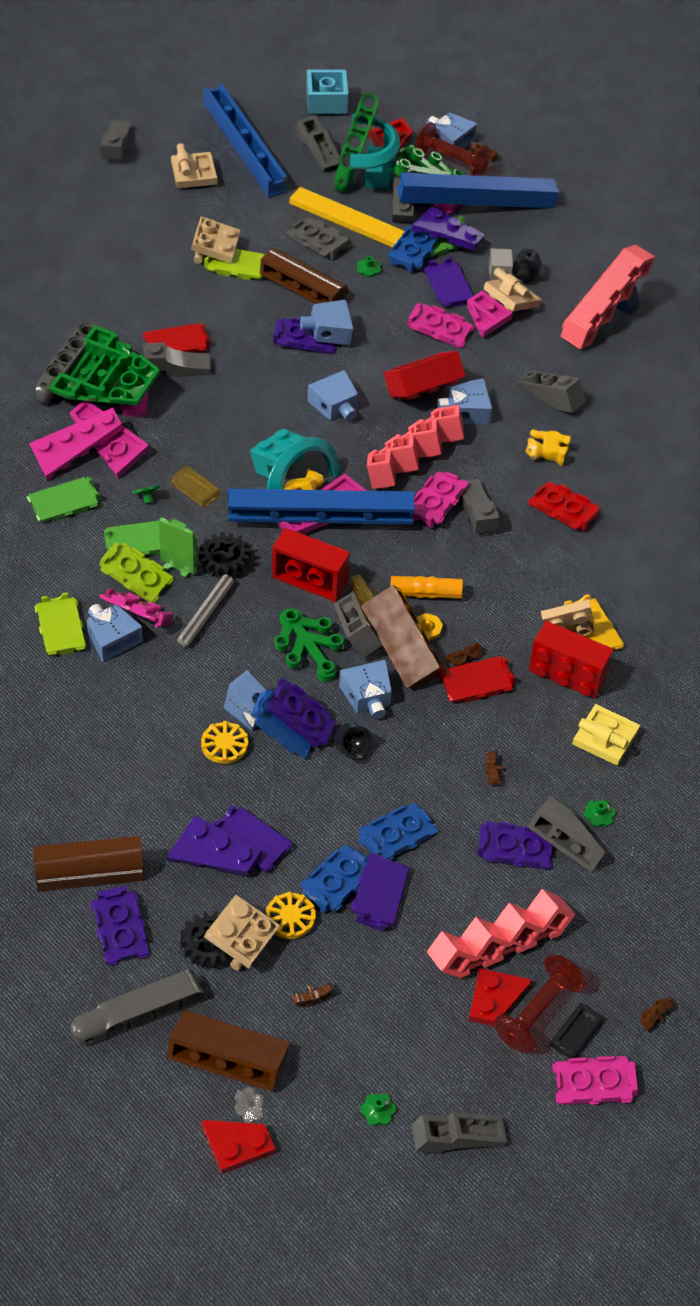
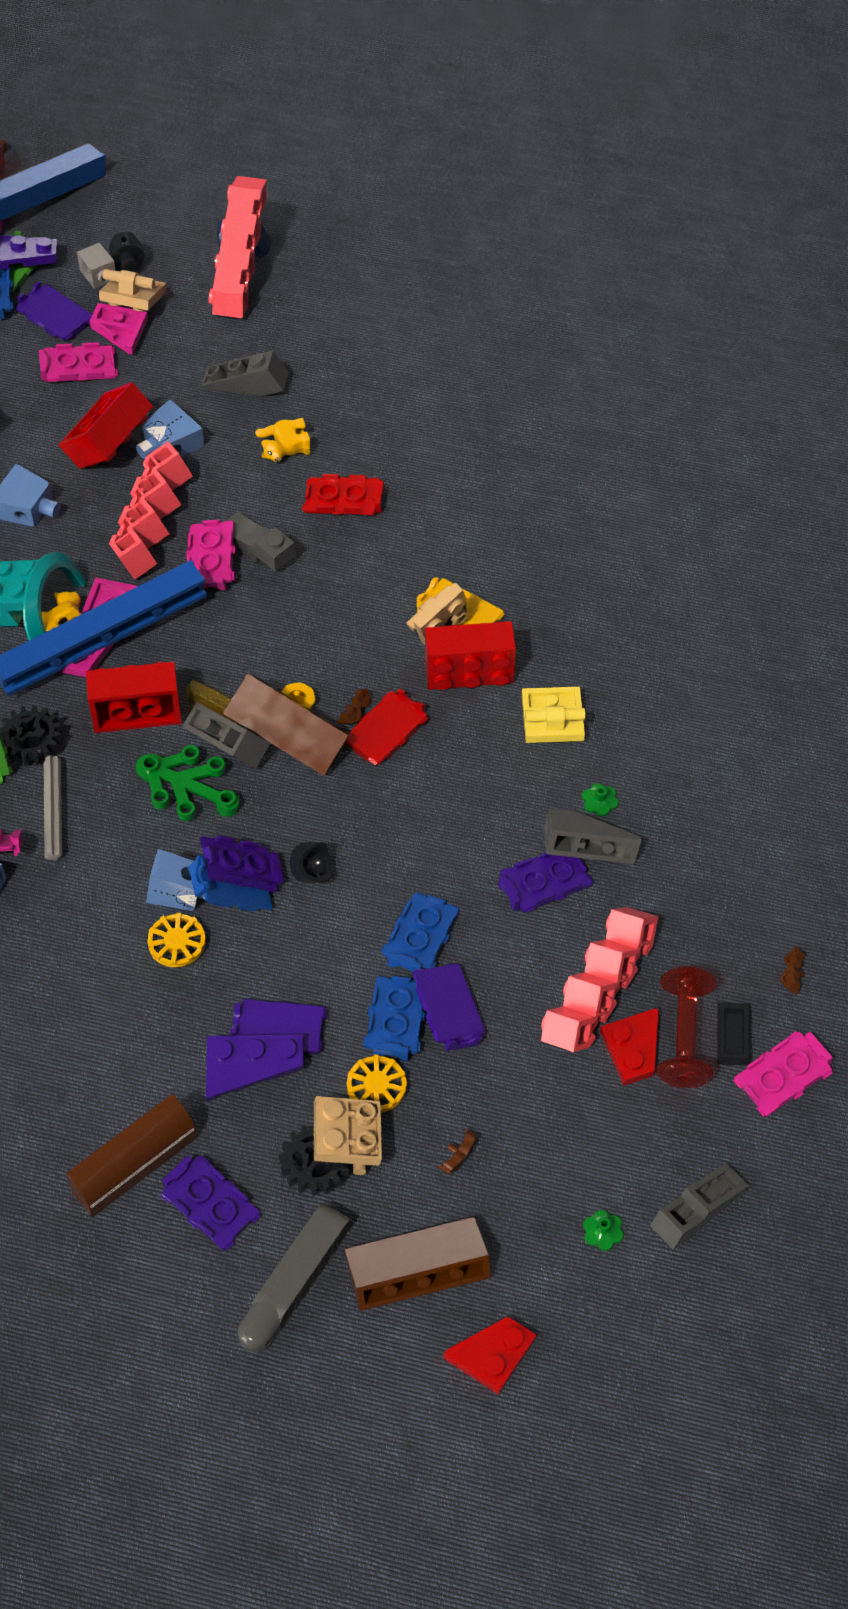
camera: 30 degrees left, 5 degrees up
(249, 1104) = (479, 1306): clear plant -> none
(367, 688) = (285, 798): medium blue torso -> none
(429, 587) = (267, 656): light orange axle -> none
(491, 769) = (467, 815): reddish brown piece -> none

